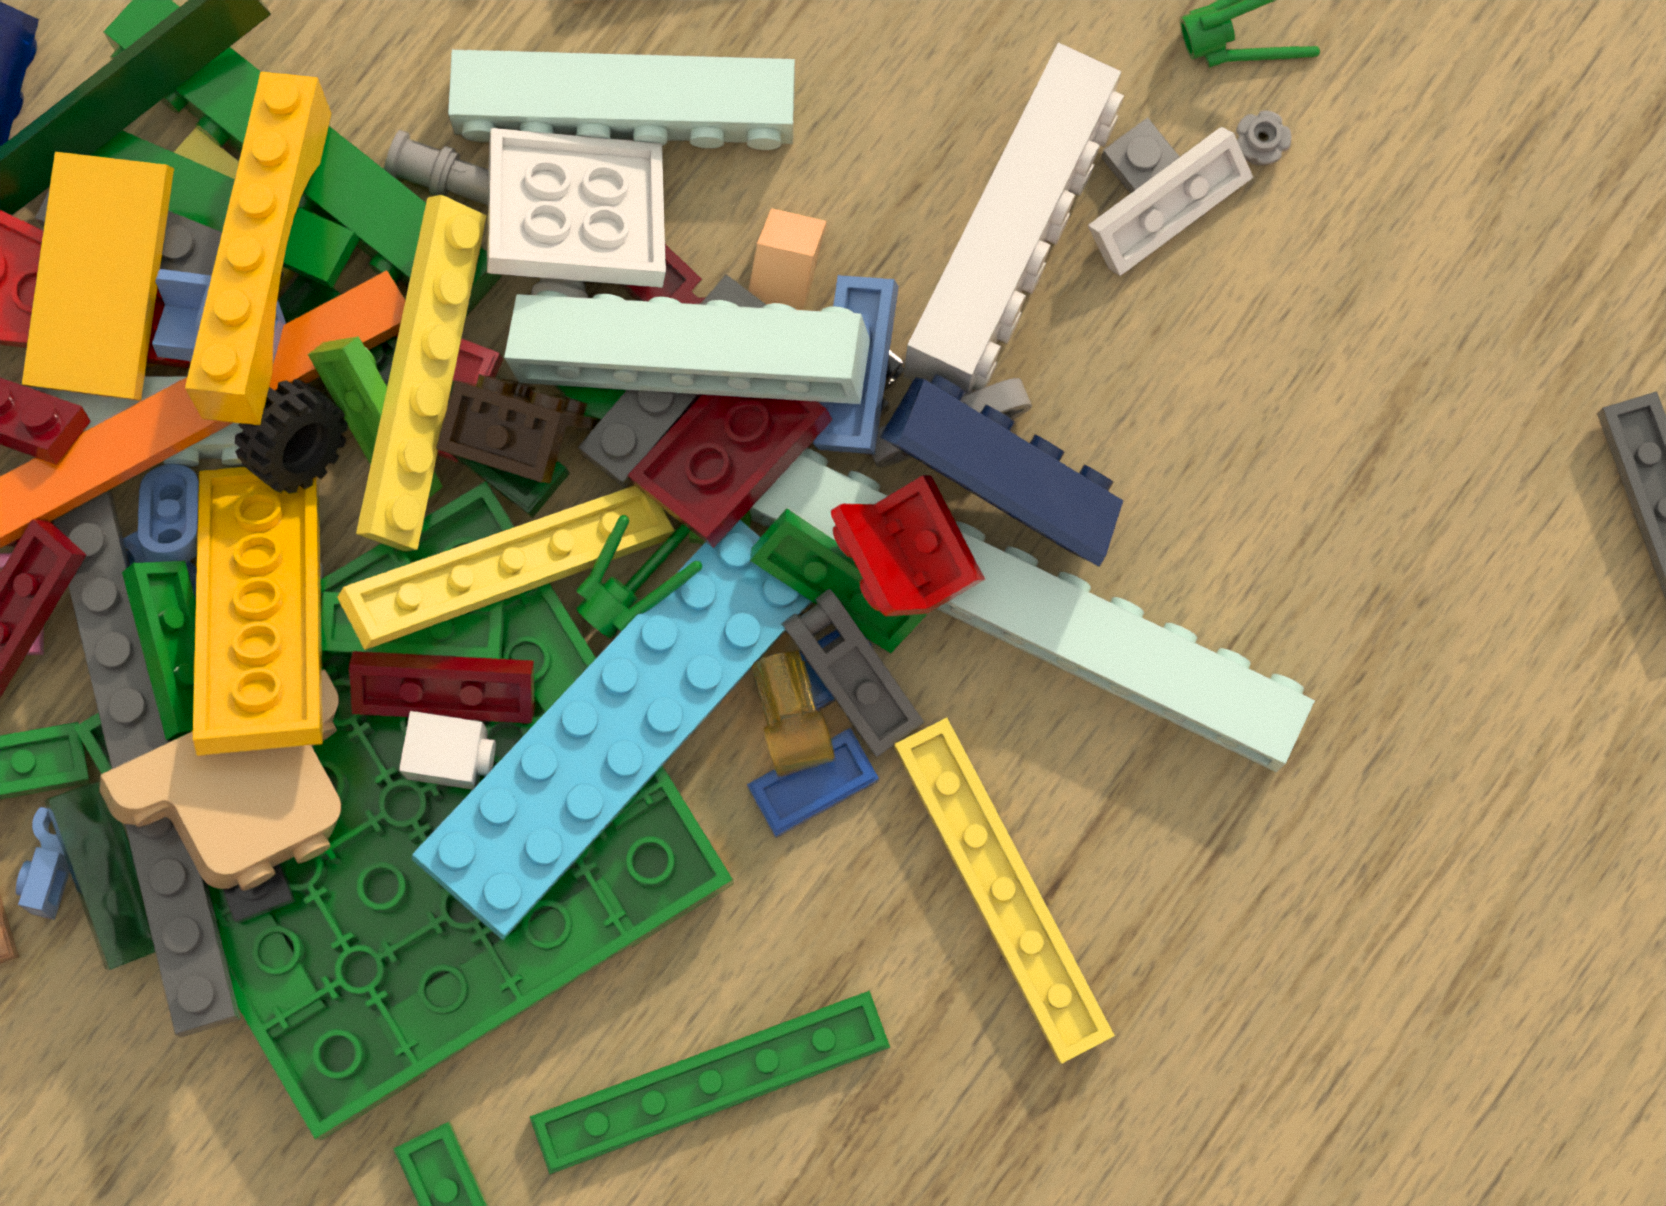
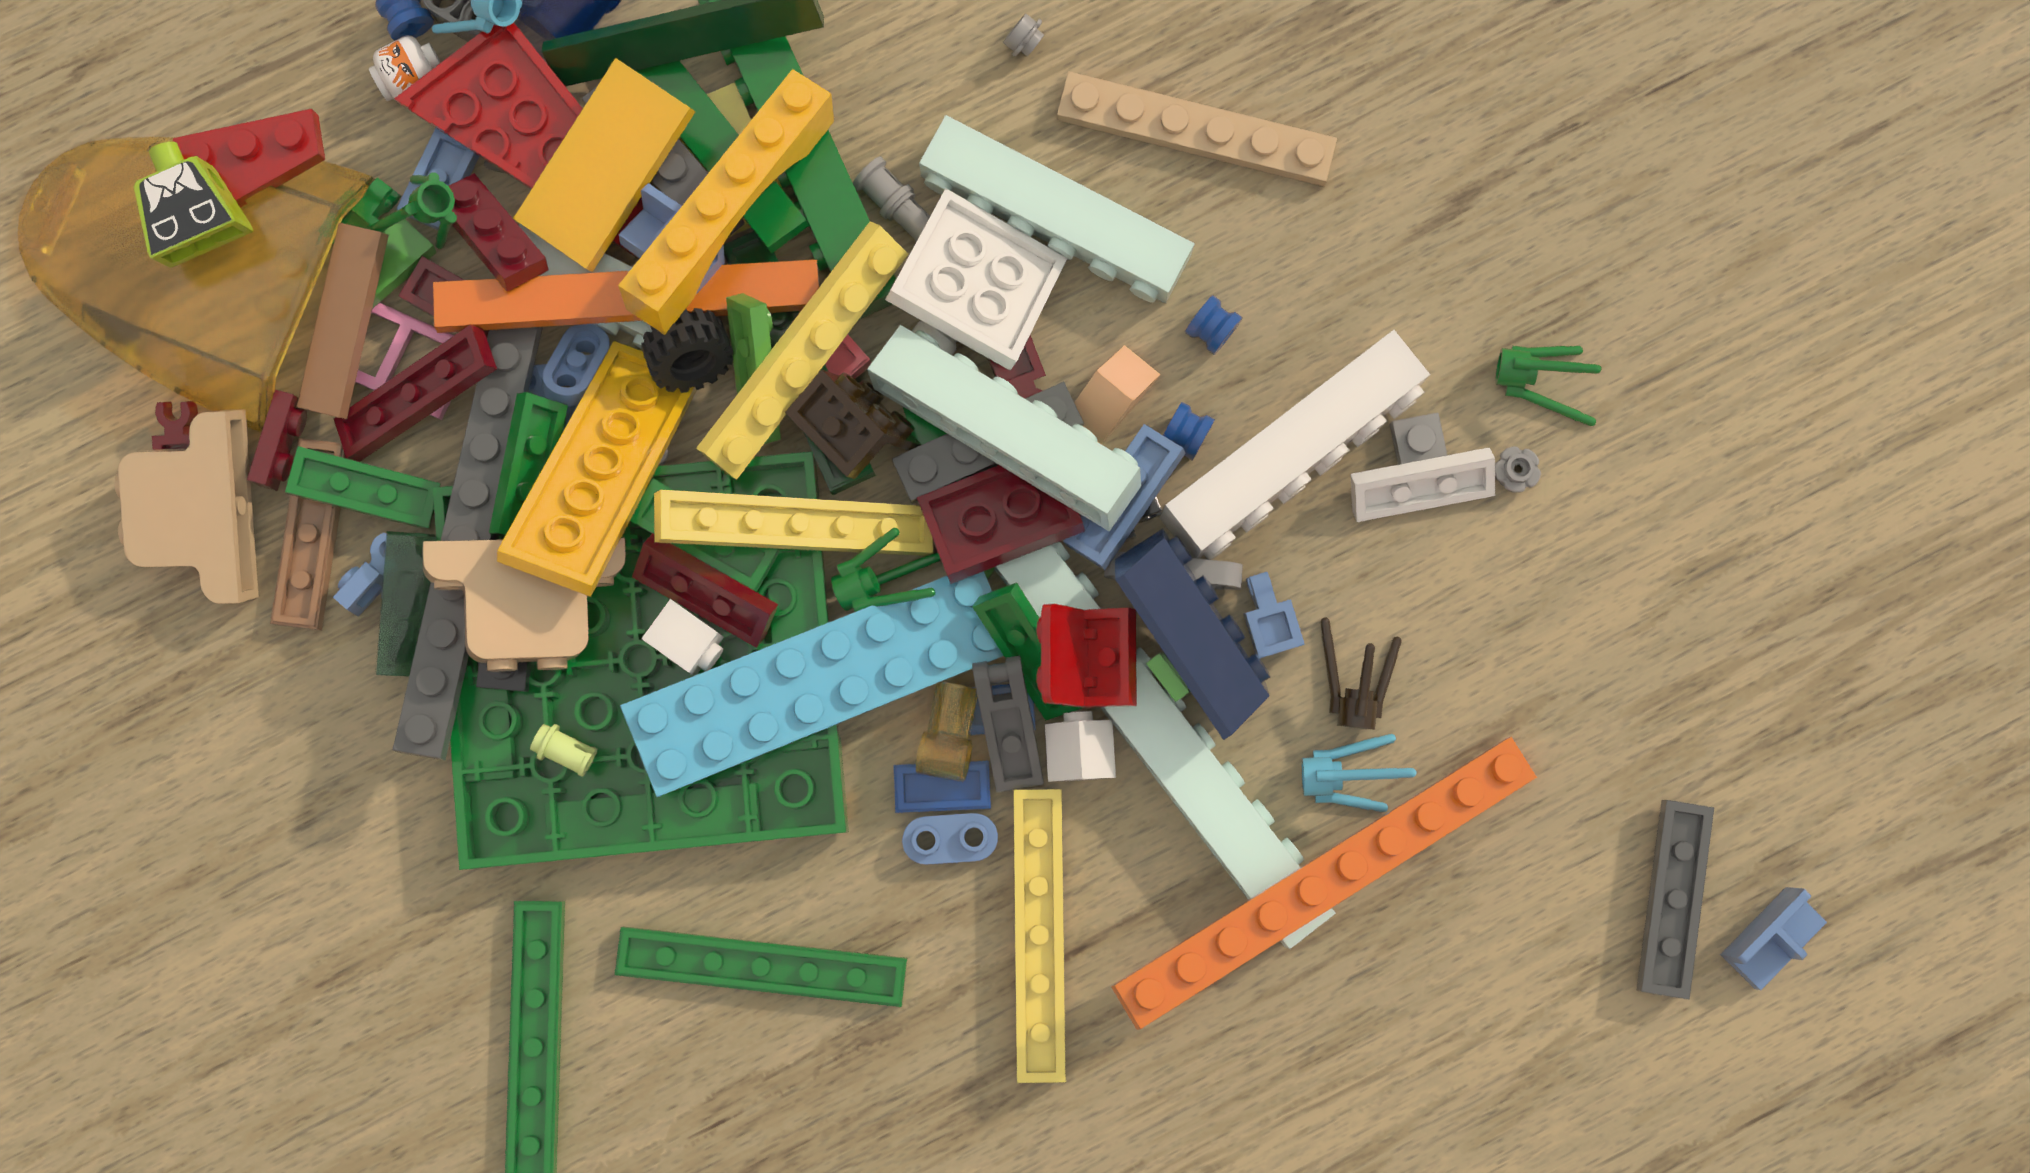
camera: 30 degrees right, 5 degrees up
(368, 942) = (563, 749): none -> yellowish green pin
(851, 834) = (950, 838): none -> medium blue plate
(858, 138) = (1213, 324): none -> blue wheel
(889, 261) = (1188, 429): none -> blue wheel
(945, 662) = (1080, 748): none -> white brick
(1006, 528) = (1168, 676): none -> bright green tile
(1085, 427) = (1273, 624): none -> medium blue plate
(1223, 563) = (1323, 776): none -> medium azure plant
(1224, 470) = (1359, 706): none -> dark brown plant
(1282, 677) = (1322, 883): none -> orange plate

